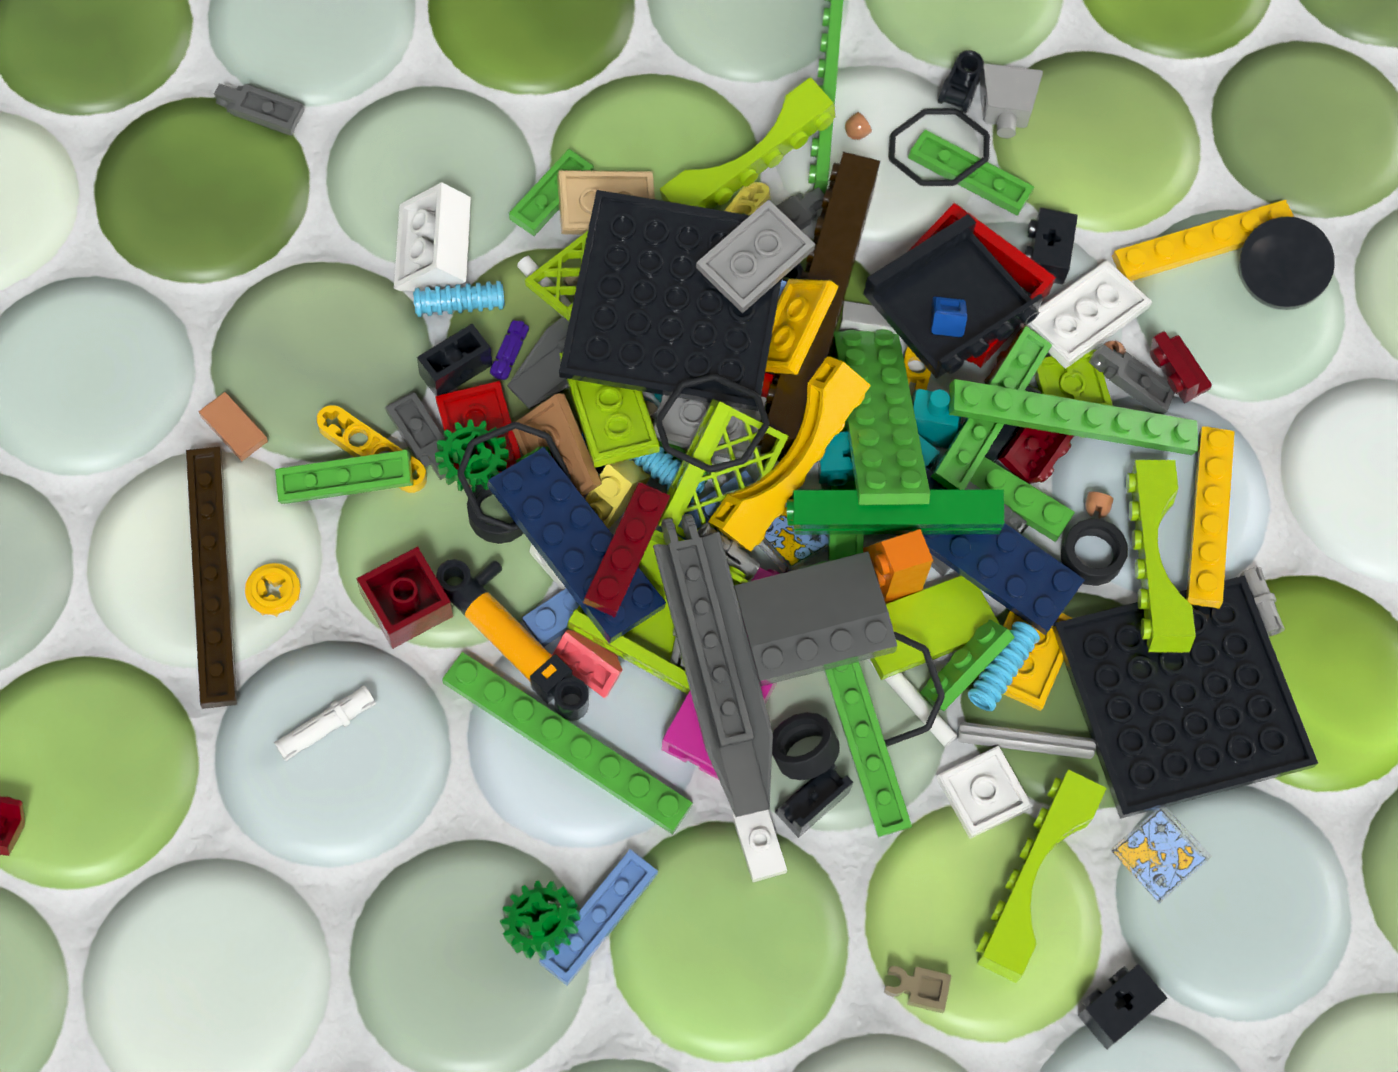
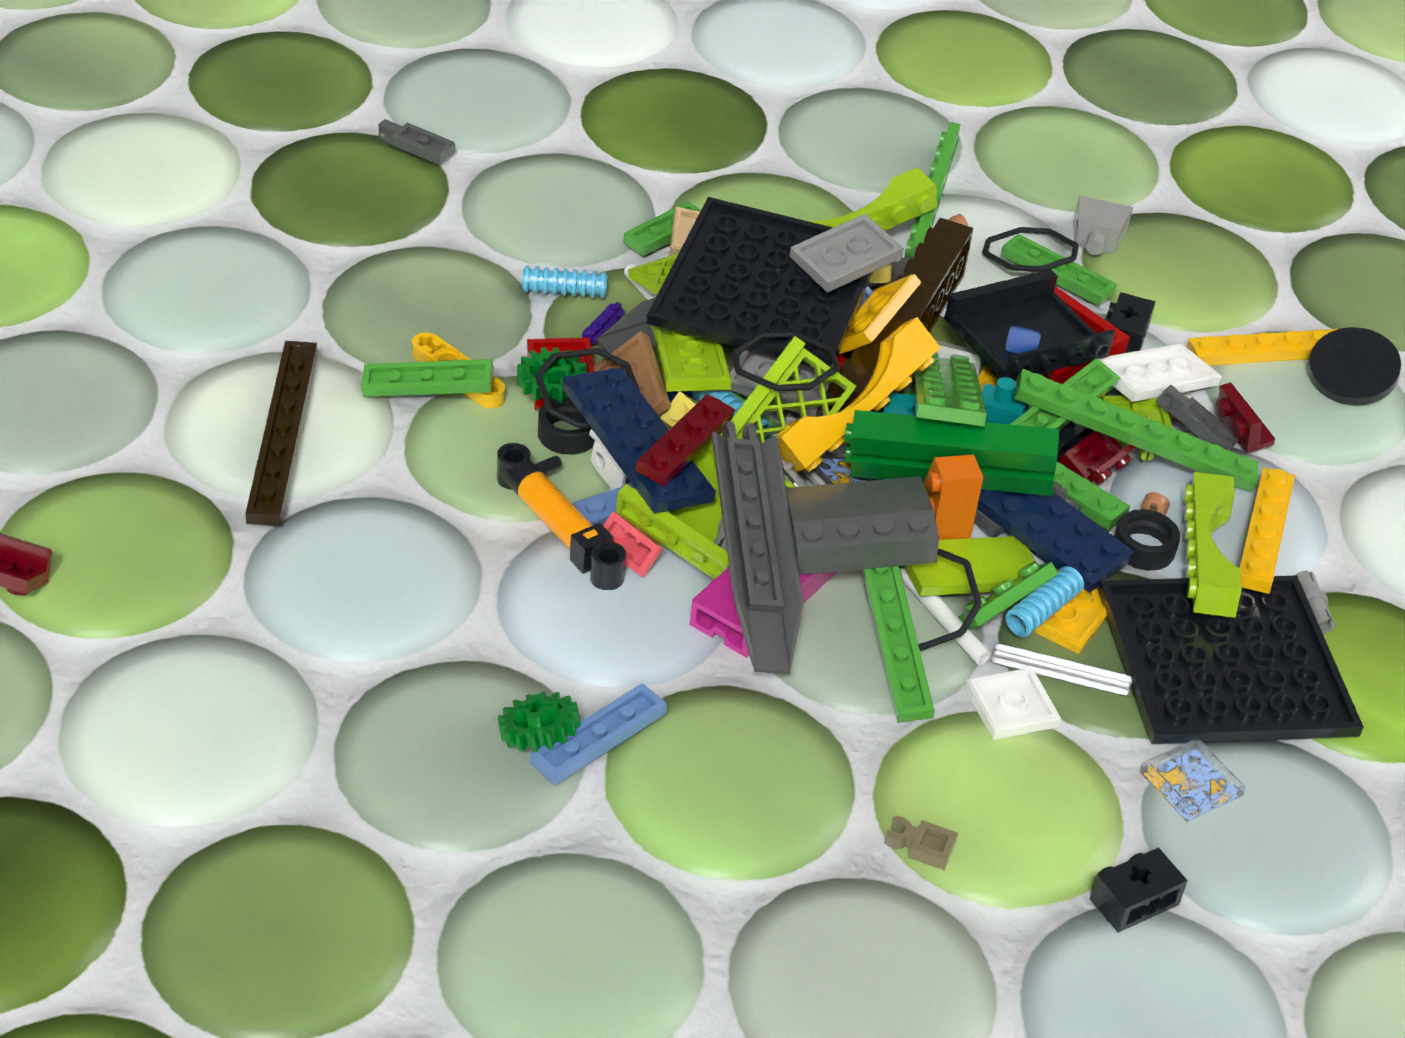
camera: 10 degrees right, 25 degrees down
(233, 426) = (333, 337): nougat tile -> none
(276, 575) = (343, 441): yellow gear -> none
(318, 727) = (374, 545): white pin -> none
(405, 597) = (463, 465): dark red brick -> none
(416, 429) = (505, 360): dark grey hinge -> none
(432, 239) = (551, 237): white slope -> none
(454, 360) = (551, 314): black brick -> none
(567, 743) = (599, 603): bright green plate -> none
(760, 845) = (775, 705): white plate -> none
(814, 762) = (834, 629): black tyre -> none
(814, 800) = (839, 680): black hinge -> none
(961, 84) = (1057, 209): black piece -> none
(1012, 938) = (1025, 815): lime arch -> none

